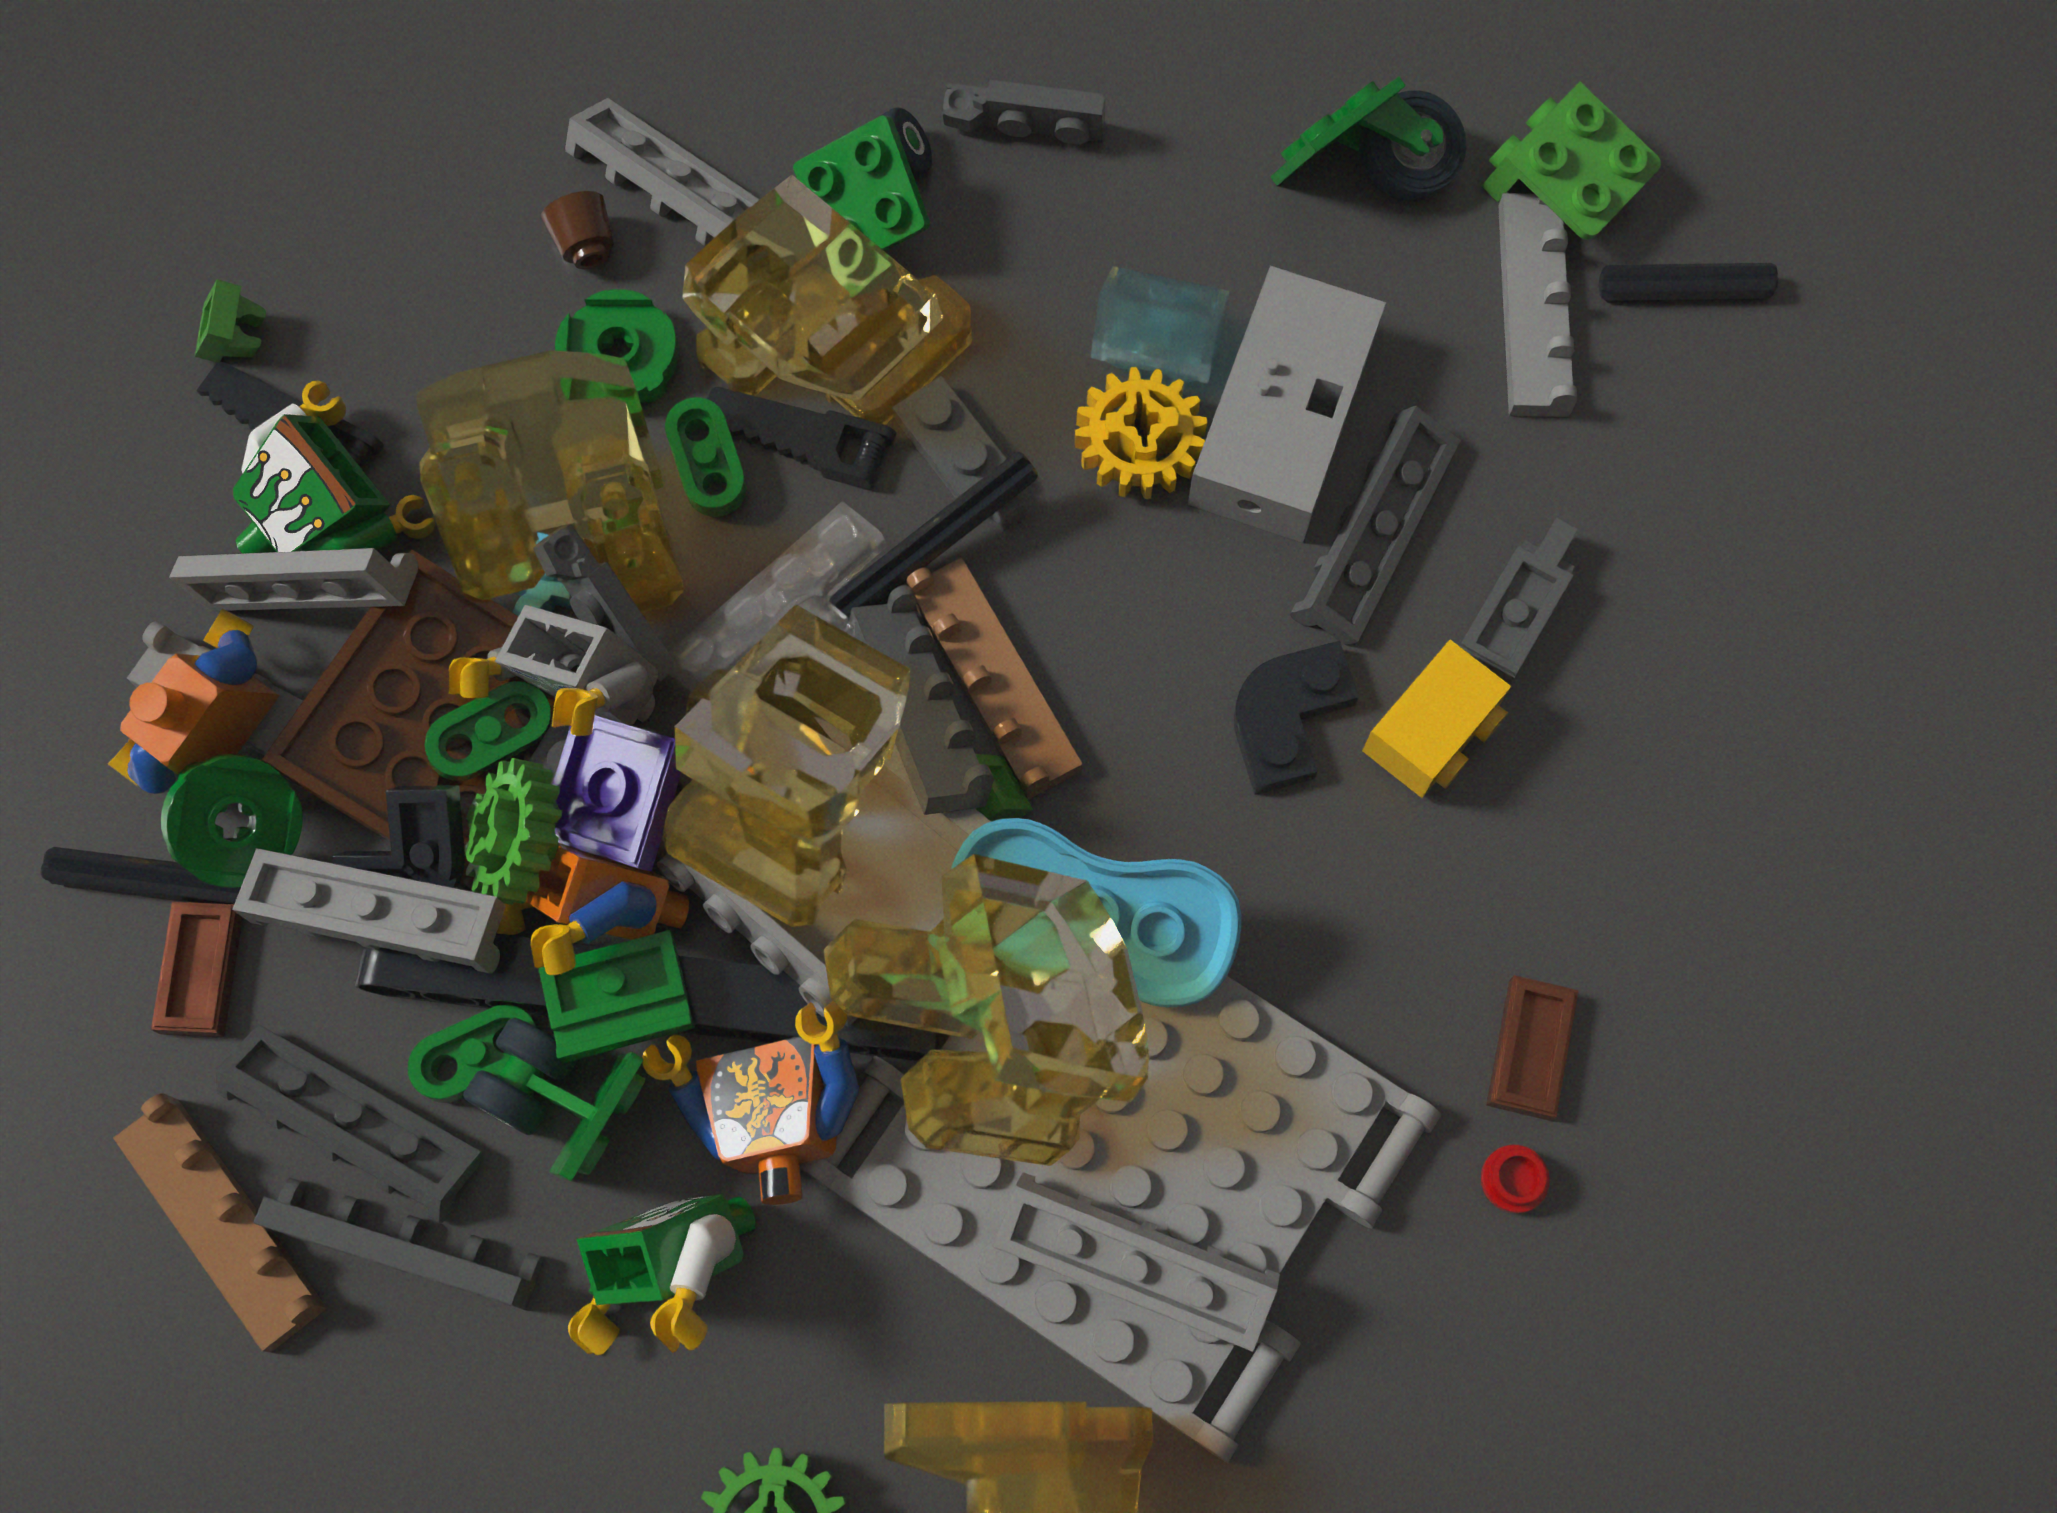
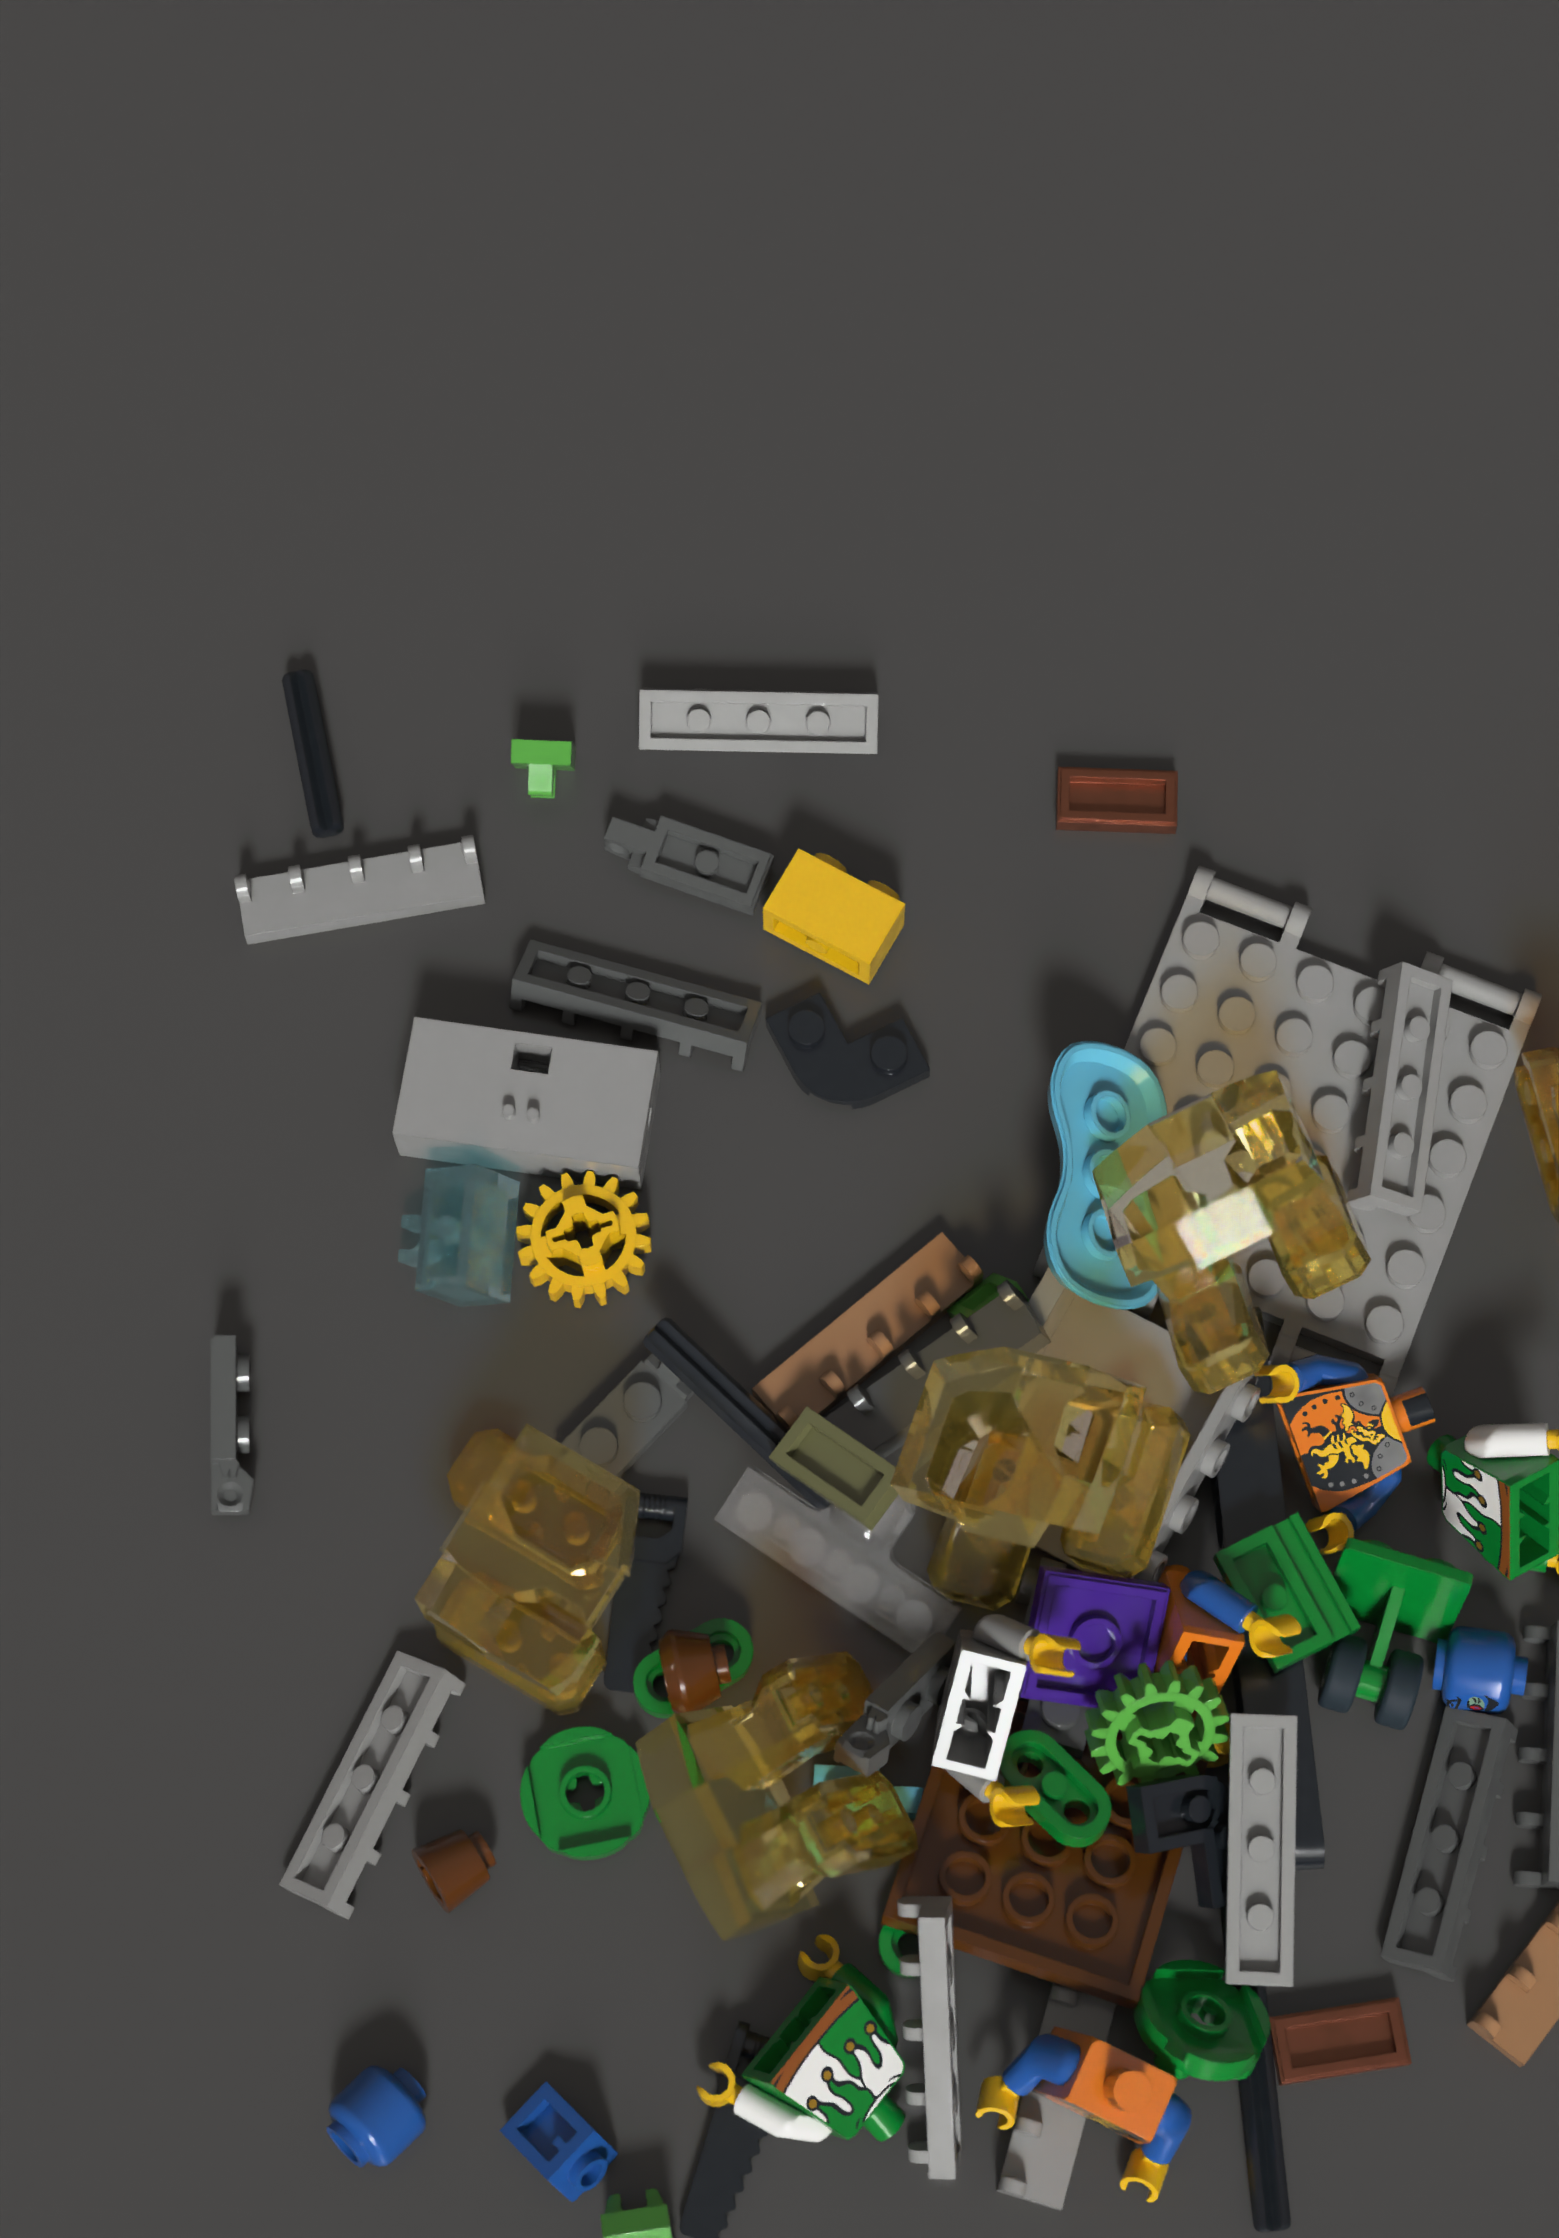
camera: 100 degrees left, 0 degrees up
(320, 273) = (559, 2143): none -> blue bracket
(386, 137) = (377, 2116): none -> blue head
(467, 1042) = (1355, 1738): green plate -> none
(504, 1191) = (1478, 1669): none -> blue head
(689, 432) = (692, 1669): none -> reddish brown cone
(854, 589) = (837, 1468): none -> olive tile
(872, 177) = (350, 1569): green plate -> none
(1405, 140) = (209, 1035): plate -> none
(1515, 1179) = (1238, 798): red plate -> none
(1575, 161) = (206, 871): bright green bracket -> none
(1646, 478) = (543, 761): none -> bright green tile
(1670, 698) = (758, 721): none -> light grey hinge

